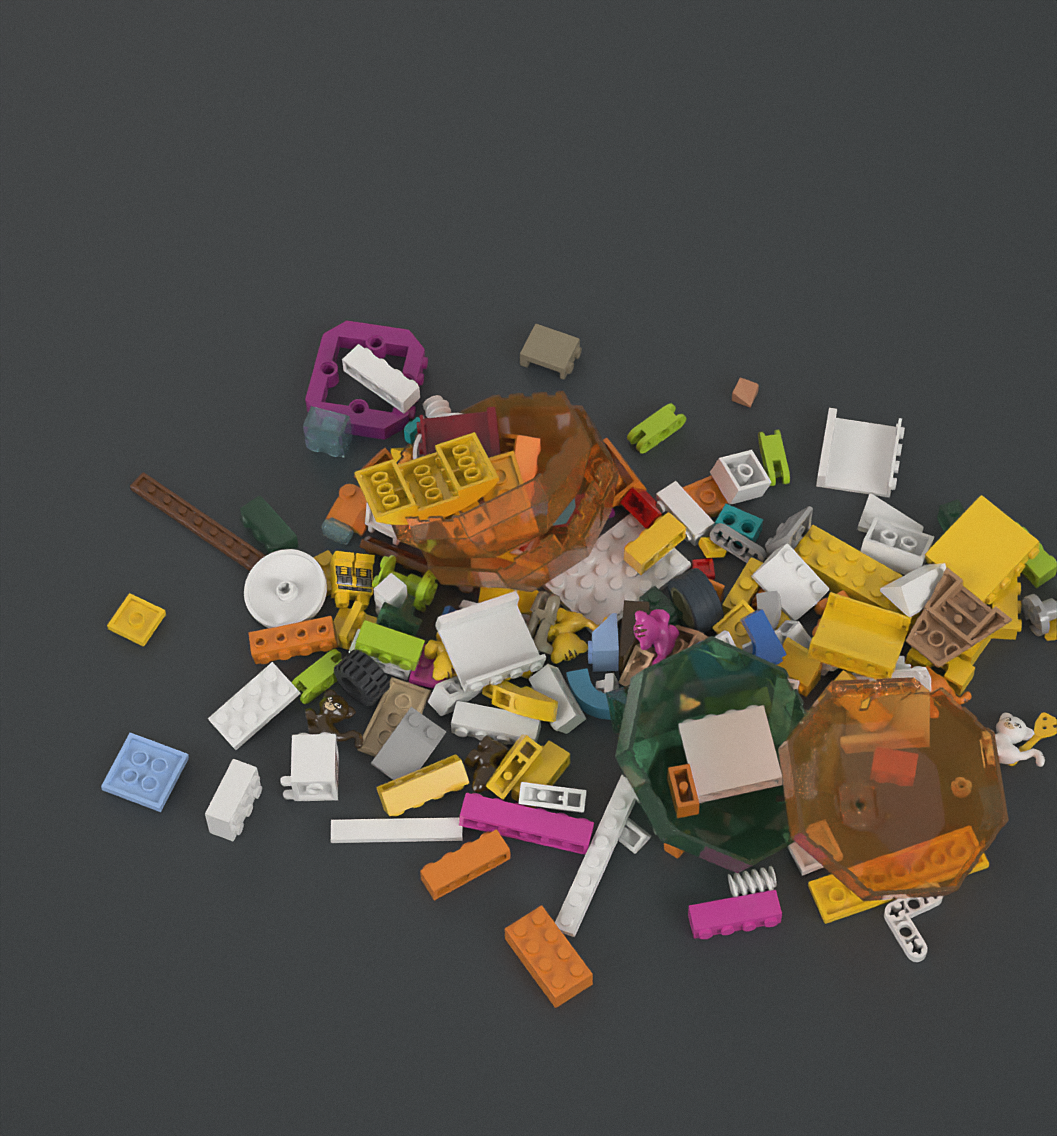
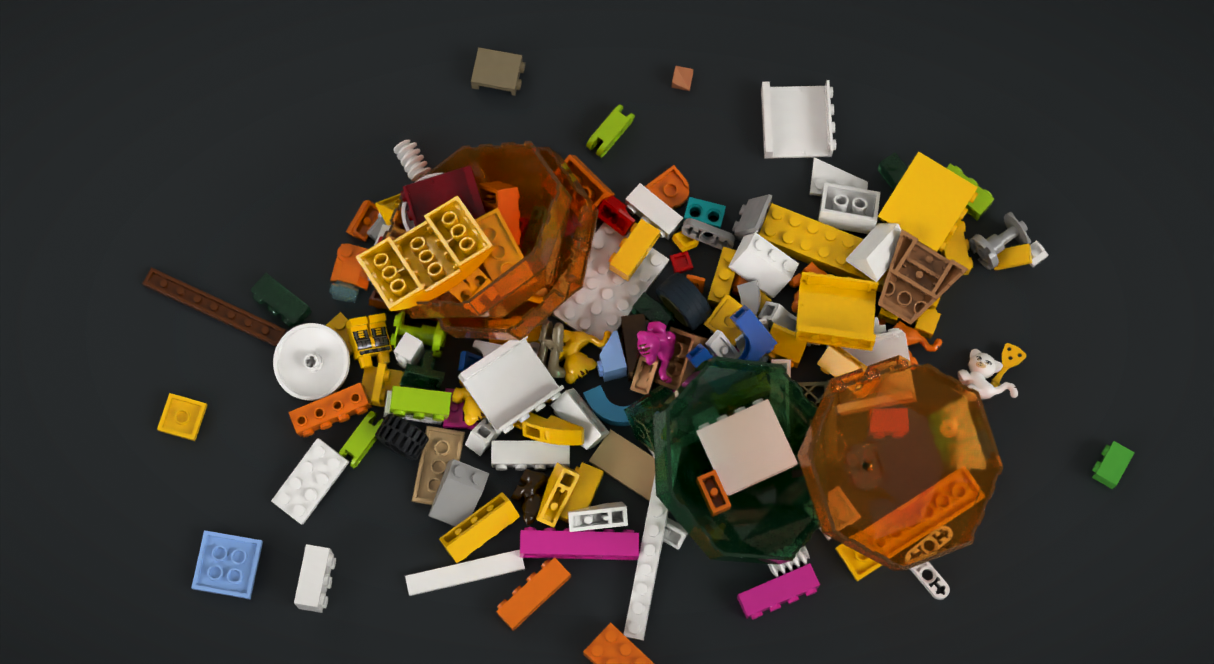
camera: 15 degrees left, 15 degrees up
(313, 768) = (378, 532): white container -> none
(326, 375) = (323, 91): magenta panel -> none
(327, 432) = (312, 196): clear light blue brick -> none
(332, 710) = (383, 470): dark brown animal -> none
(381, 378) = (350, 133): white brick -> none
(411, 430) = (390, 175): teal plate -> none
(594, 754) = (625, 463): none -> tan tile
(609, 684) = (622, 397): white tile -> none
(740, 477) = (697, 167): white brick -> none
(774, 457) = (722, 140): lime piece -> none

